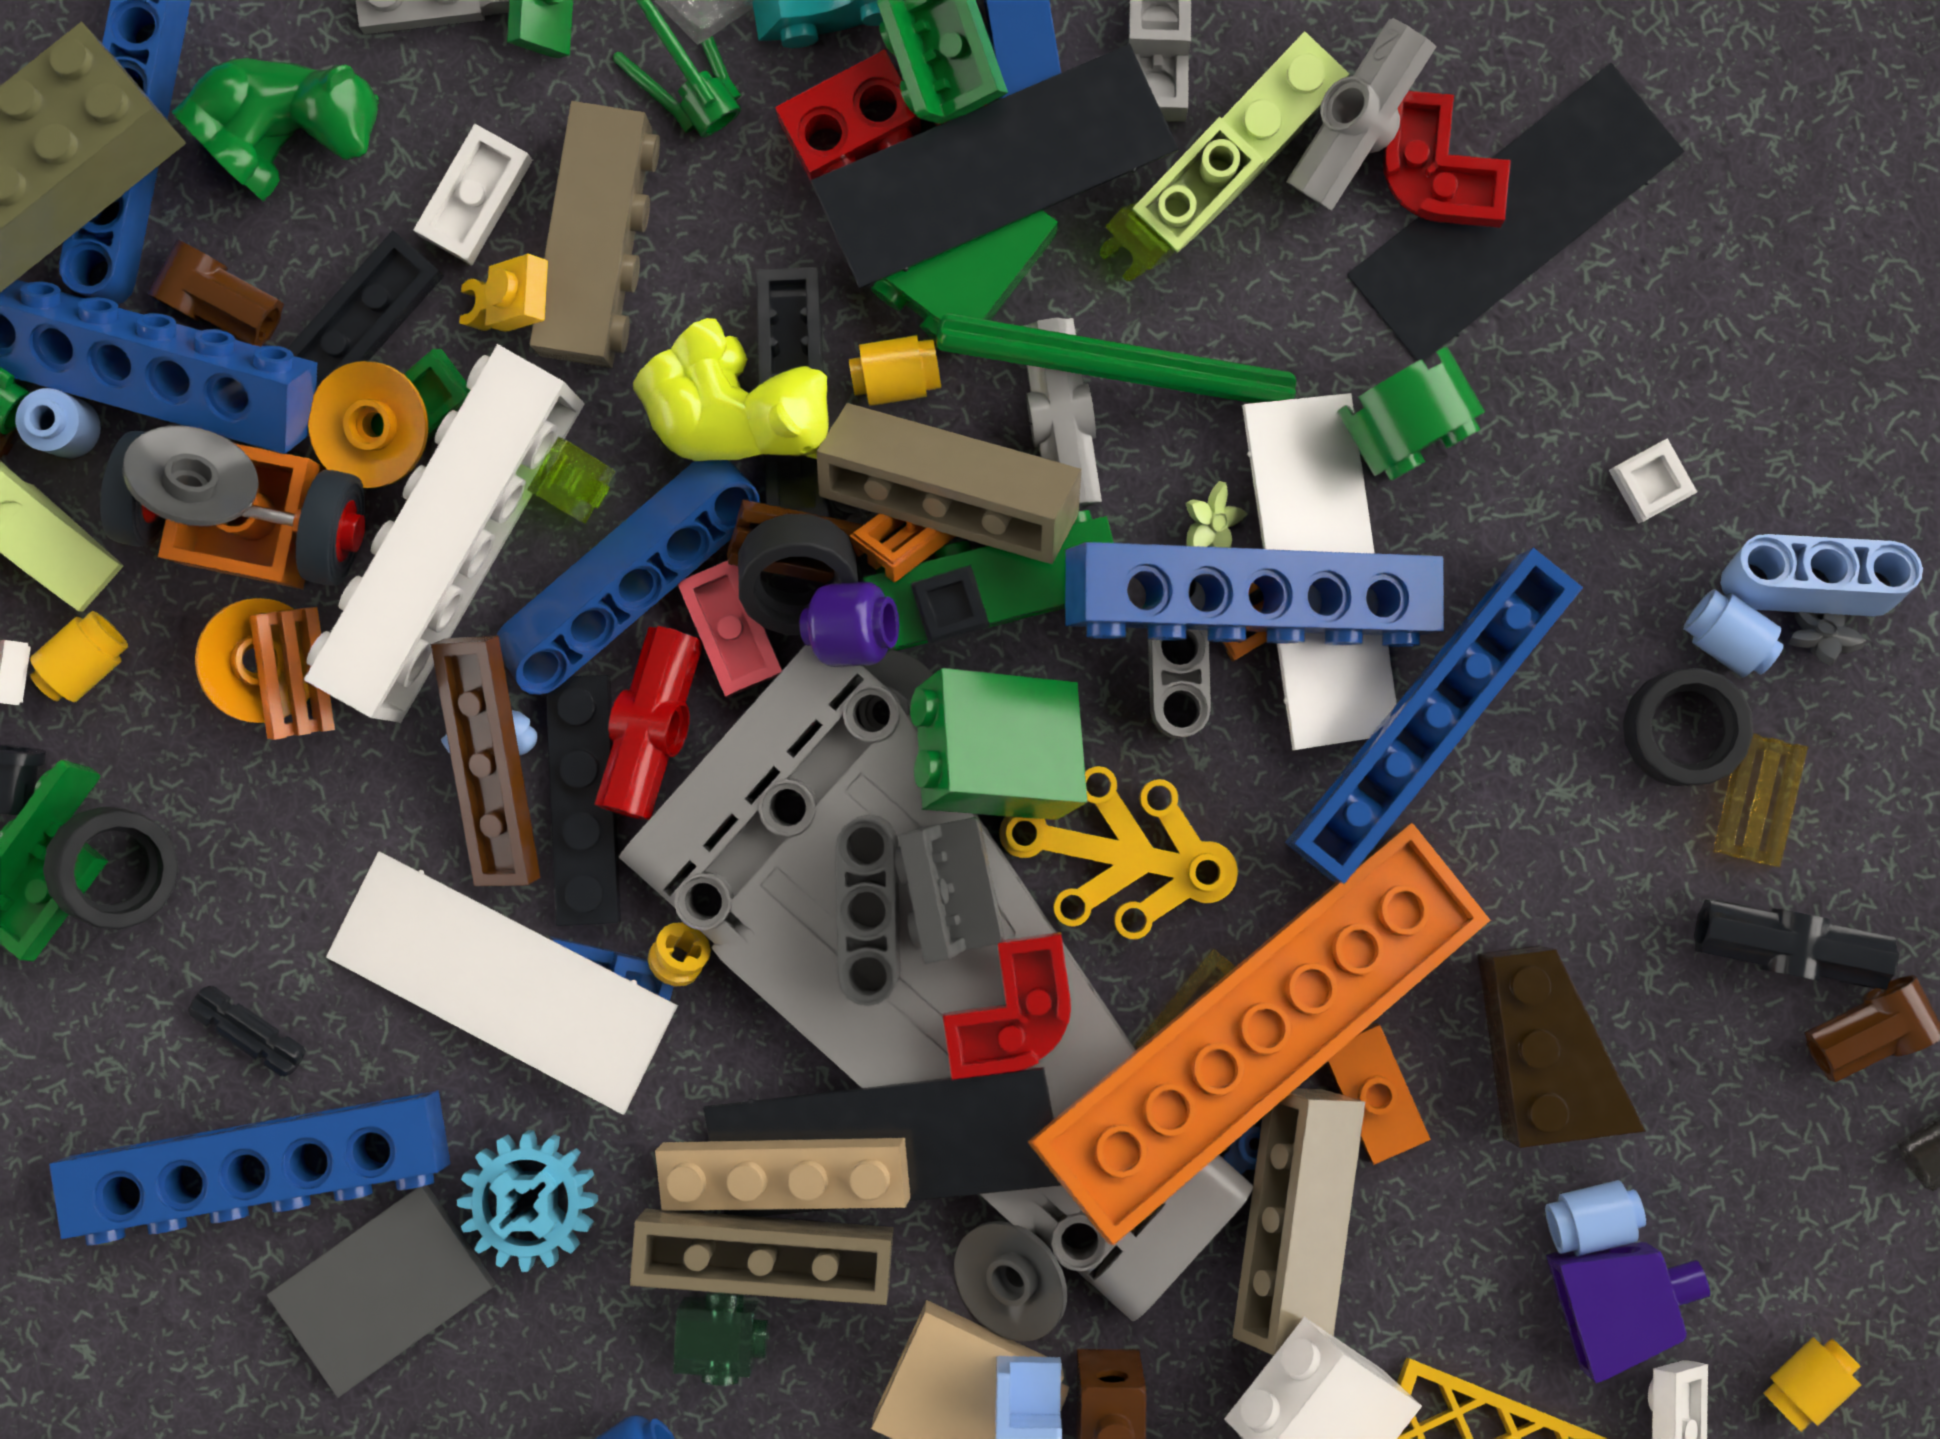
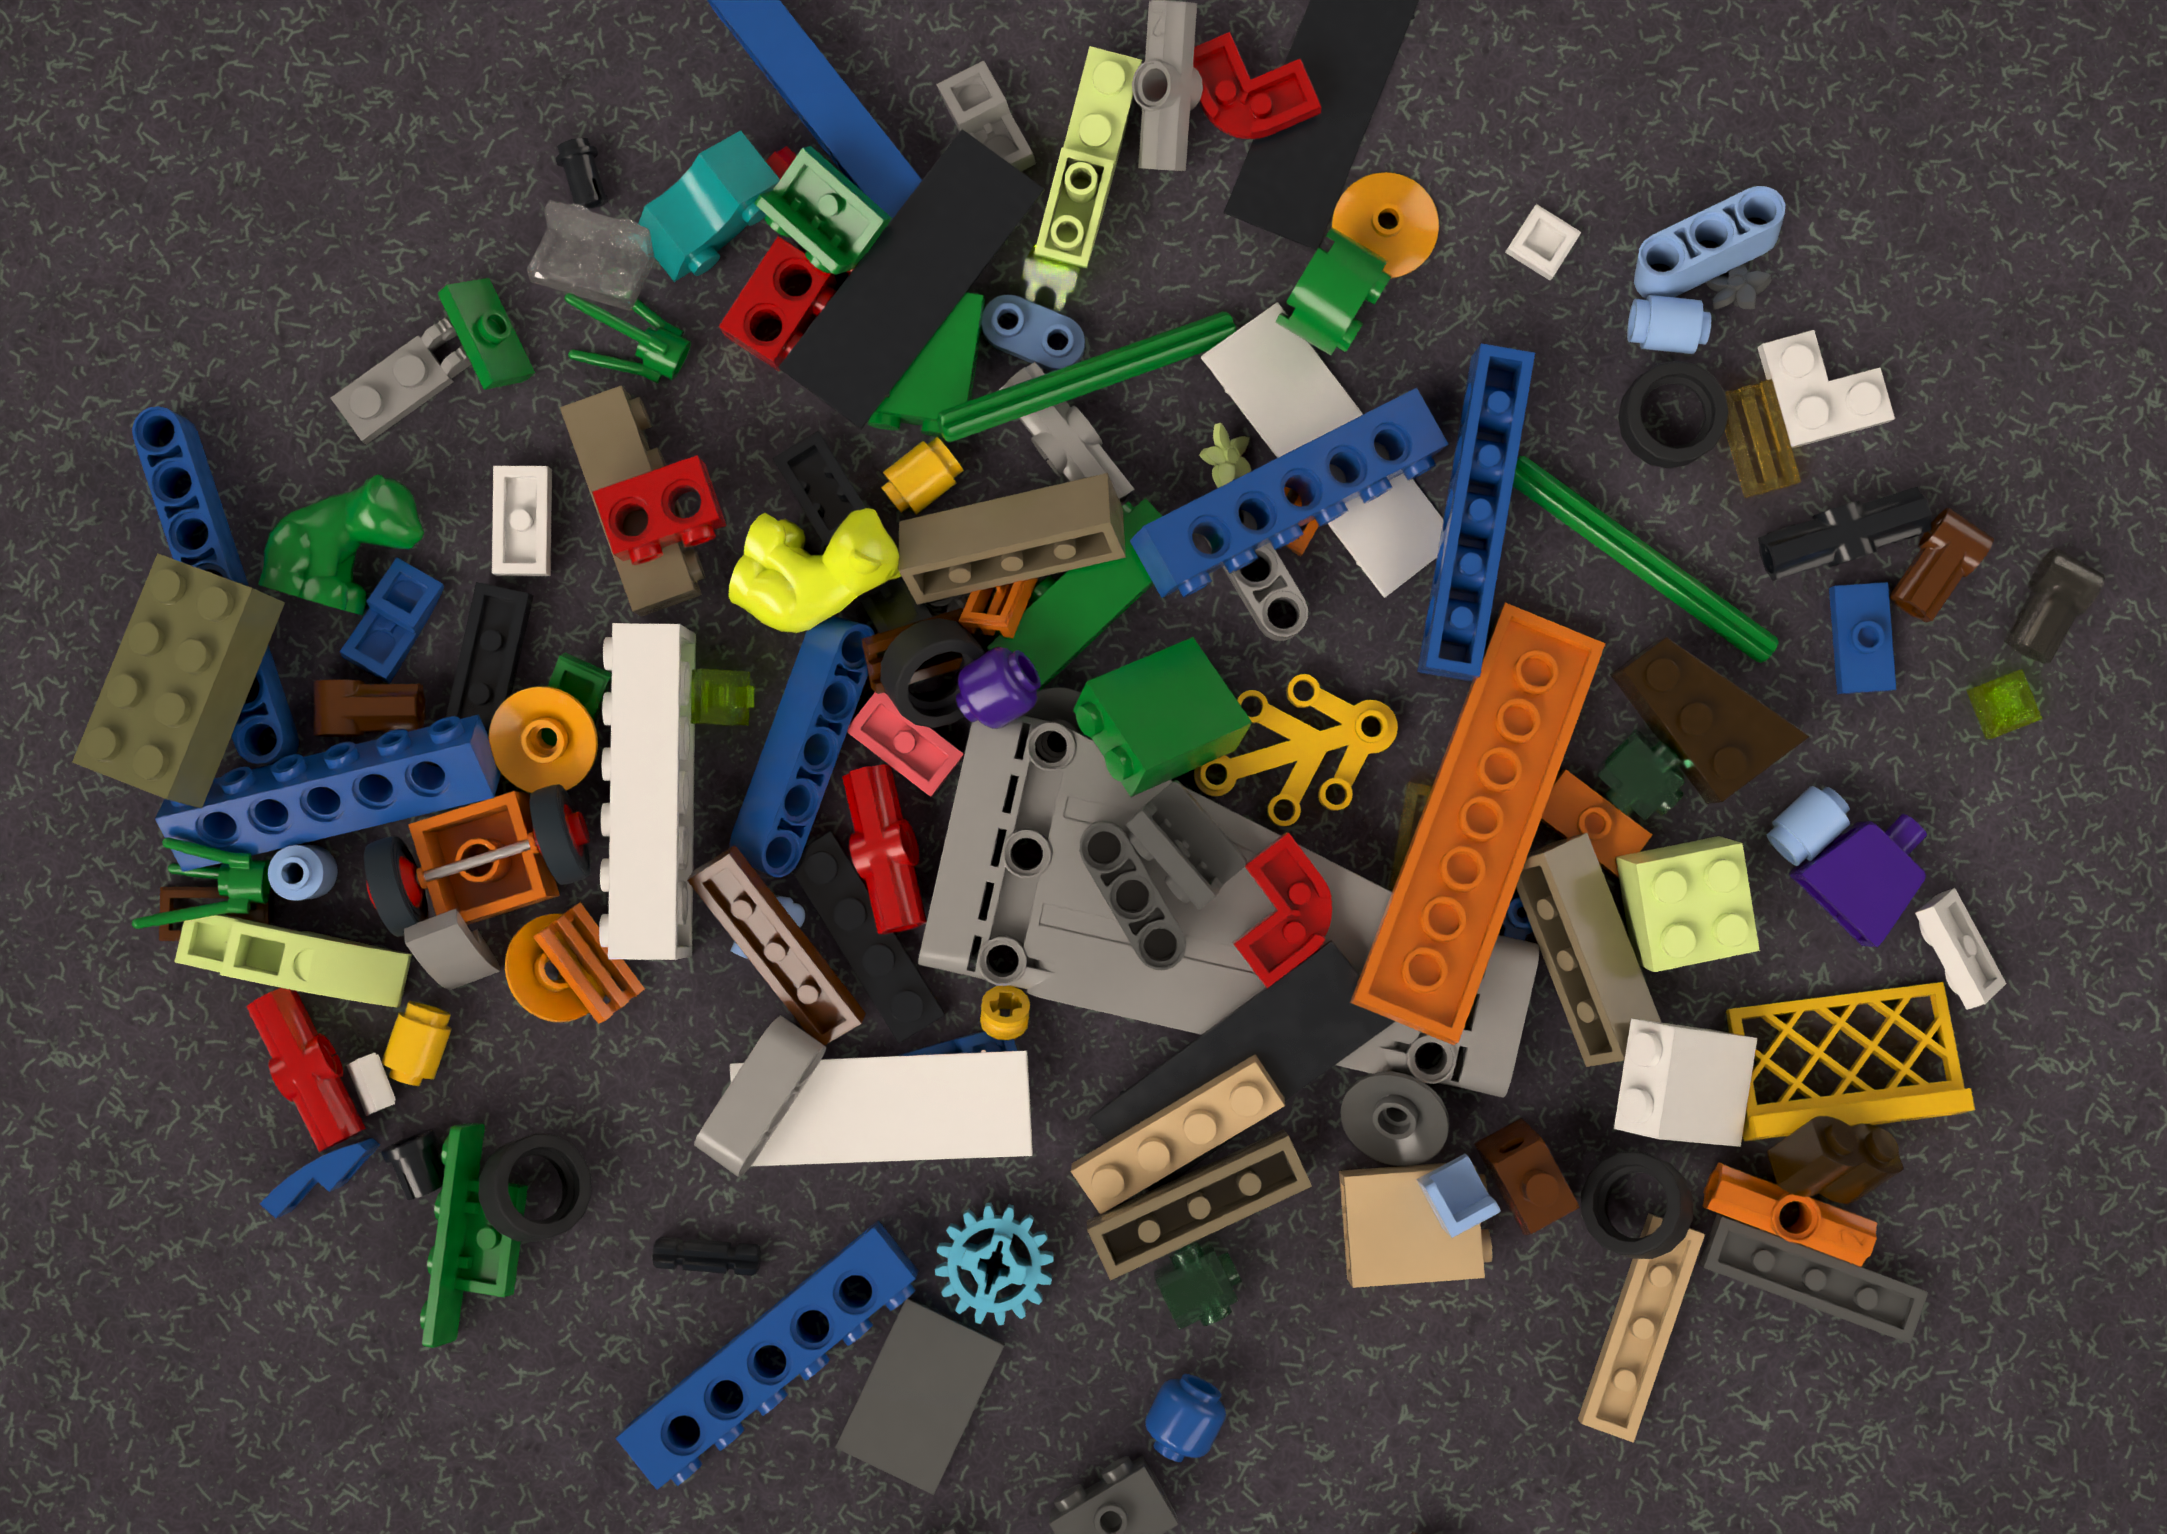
camera: 30 degrees left, 0 degrees up
(157, 583) = (450, 950): none -> light grey slope
(190, 475) = (435, 852): dark grey dish -> none
(292, 224) = (393, 621): none -> blue slope
(387, 901) = (759, 1096): none -> light grey beam
(510, 296) = (597, 583): yellow plate -> none
(616, 241) = (657, 495): none -> red brick
(950, 605) = (1064, 631): black tile -> none
(1087, 287) = (1032, 332): none -> medium blue plate
(1427, 1230) = (1687, 903): none -> yellowish green brick
(1453, 1075) = (1643, 776): none -> clear green brick
(1515, 406) = (1416, 215): none -> light orange dish
(1576, 858) = (1643, 560): none -> green axle
(1754, 1059) = (1862, 638): none -> blue plate
(1813, 1383) = (2041, 856): yellow brick -> none
(1834, 793) = (1811, 403): none -> white plate
(1861, 1206) = (2004, 704): none -> clear neon green tile

